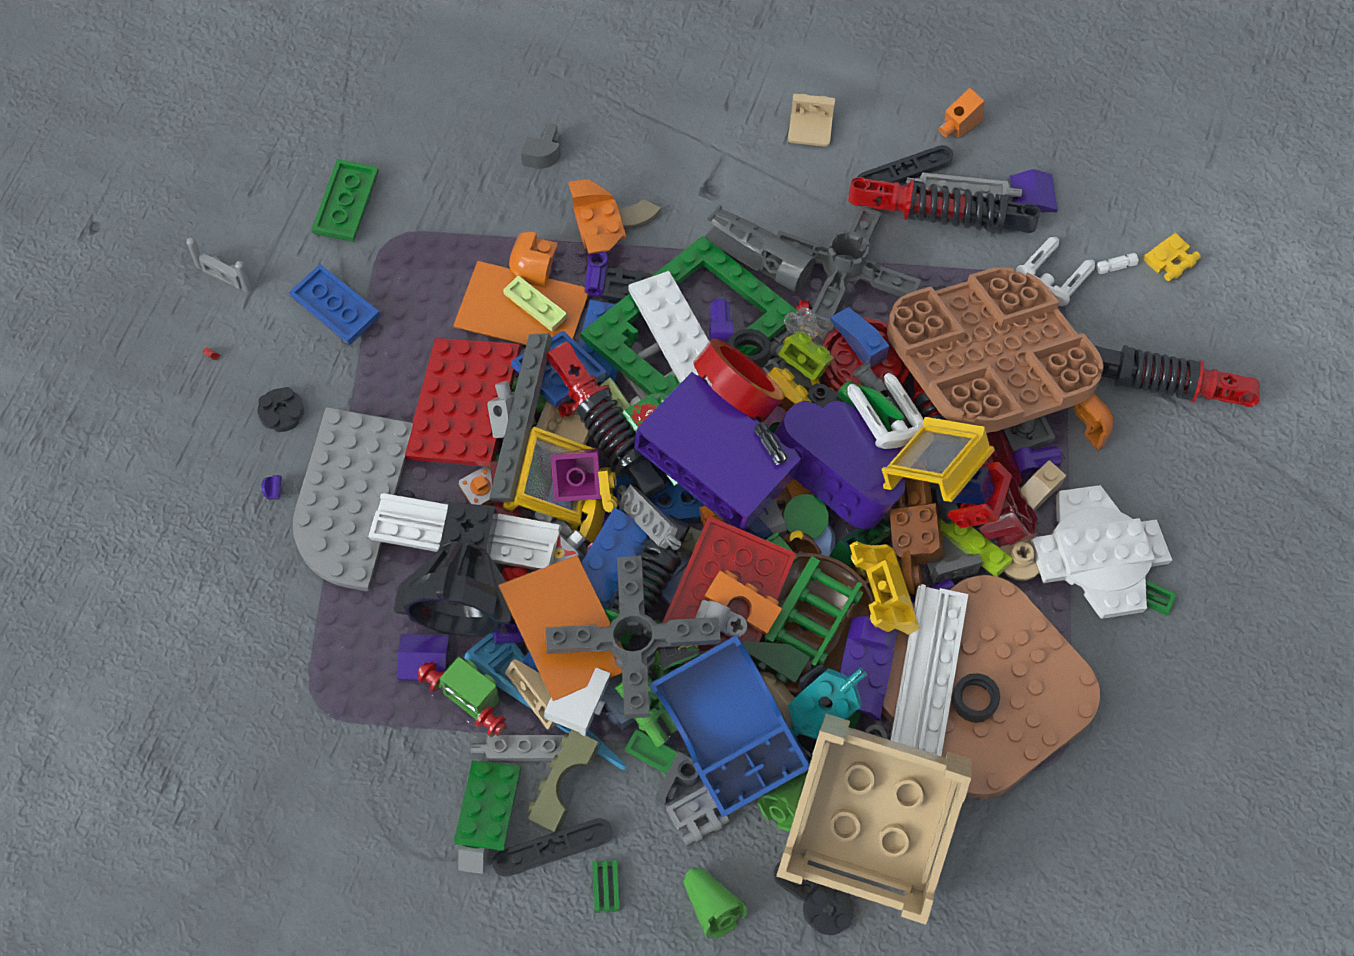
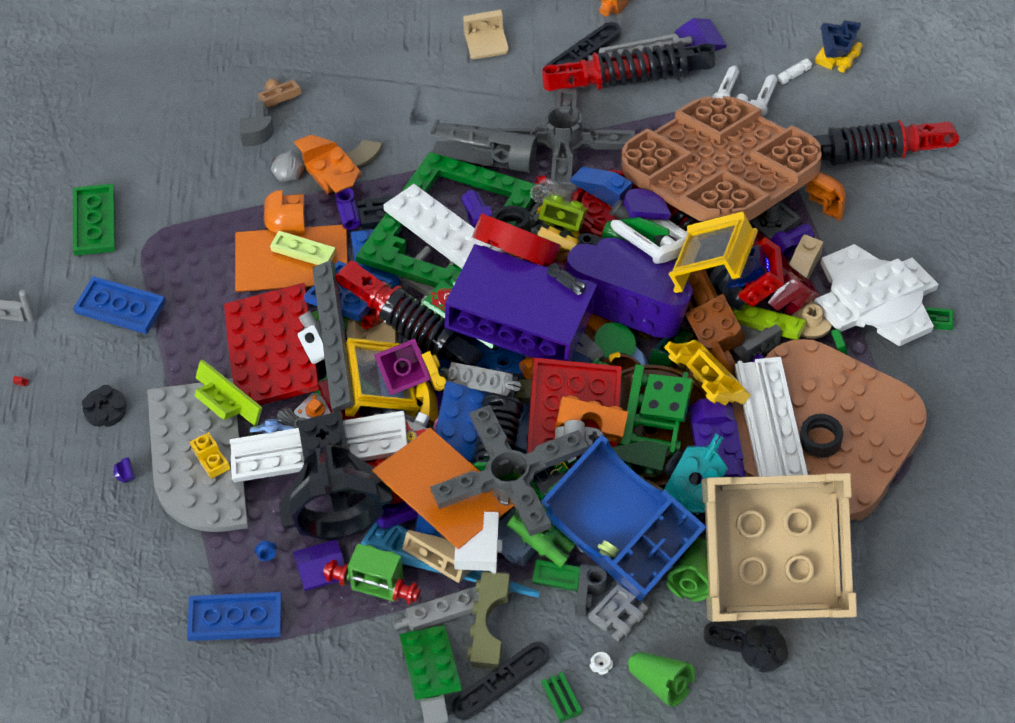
camera: 15 degrees left, 10 degrees down
(318, 685) = (234, 616): none -> blue plate
(357, 502) = (209, 455): none -> yellow slope
(374, 624) = (265, 550): none -> blue plate
(392, 444) = (224, 396): none -> lime bracket
(428, 491) = (270, 426): none -> light blue plate
(450, 485) = (287, 417): none -> dark grey piece
(556, 204) = (288, 166): none -> light grey hair
(578, 117) = (278, 92): none -> medium nougat plate
(661, 858) = (601, 657): none -> white plate
(707, 750) = (608, 549): none -> yellowish green plate
(829, 604) = (666, 397): none -> green tile
(892, 377) = (646, 205): none -> dark purple tile
(1039, 594) = (838, 341): none -> green tile
(1177, 242) = (838, 38): none -> dark blue slope

